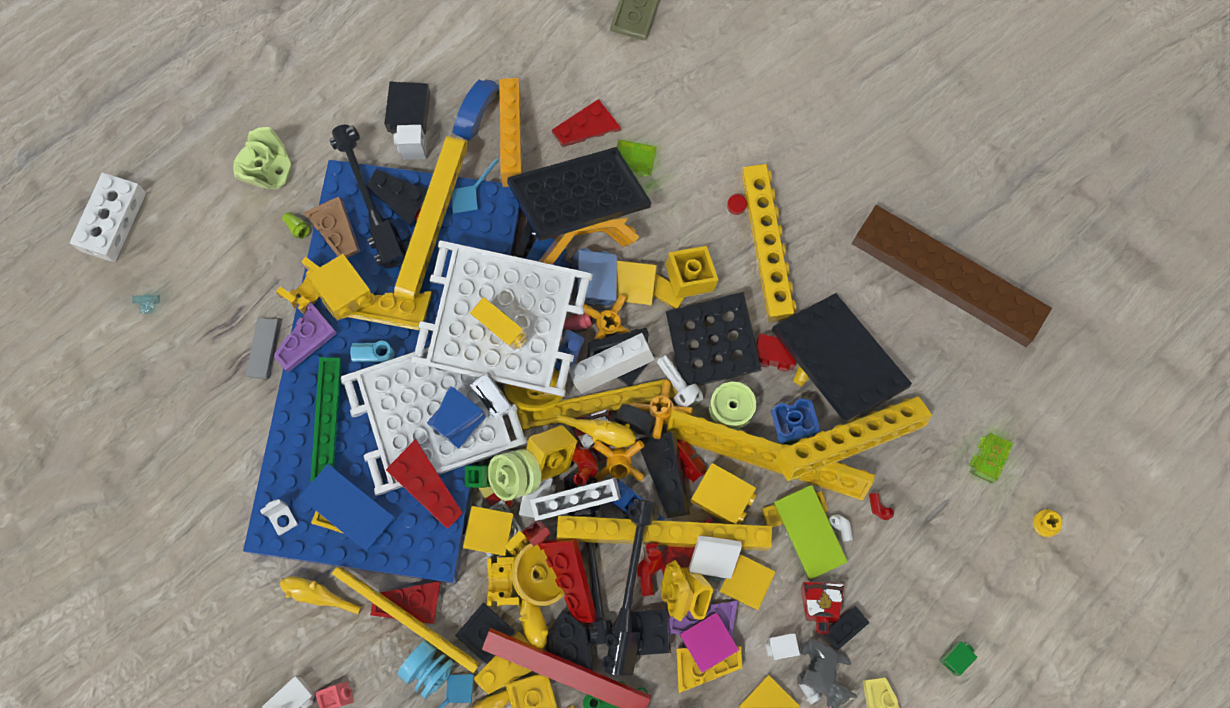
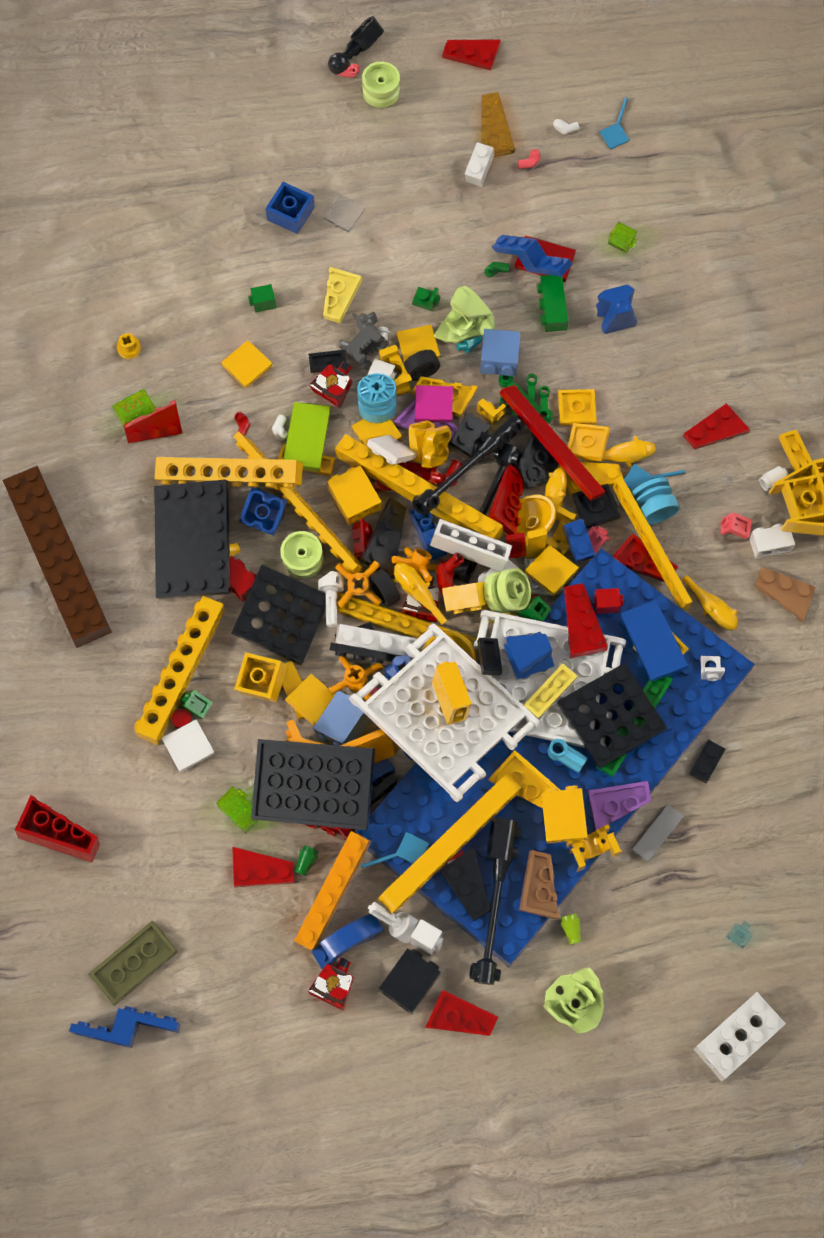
camera: 150 degrees left, 5 degrees down
(249, 440) = (707, 761): none -> black plate
(251, 656) = (787, 591): none -> medium nougat wing
(354, 107) = (460, 1016): none -> red wing
(370, 433) = (619, 745): none -> black piece
(412, 523) = (608, 601): none -> red brick
(417, 396) = (550, 691): none -> light yellow plate
(436, 139) = (401, 924): none -> white piece
(466, 596) = (598, 537): none -> coral bracket
(467, 68) = (333, 984): none -> torso
(478, 576) = (578, 541): none -> blue brick
(552, 151) = (306, 859): none -> green cone
(653, 673) = (489, 412): none -> yellow bracket
(714, 184) = (188, 746): none -> white tile
(733, 221) = (195, 703): none -> green bracket
(748, 678) = (422, 364): none -> black tyre
(757, 606) = (377, 398): none -> medium azure wheel
(771, 53) = (55, 831): none -> red wedge
(781, 669) = (391, 356): none -> yellow piece
(922, 576) = (246, 364): none -> yellow tile
(958, 451) = (158, 424): none -> red wing

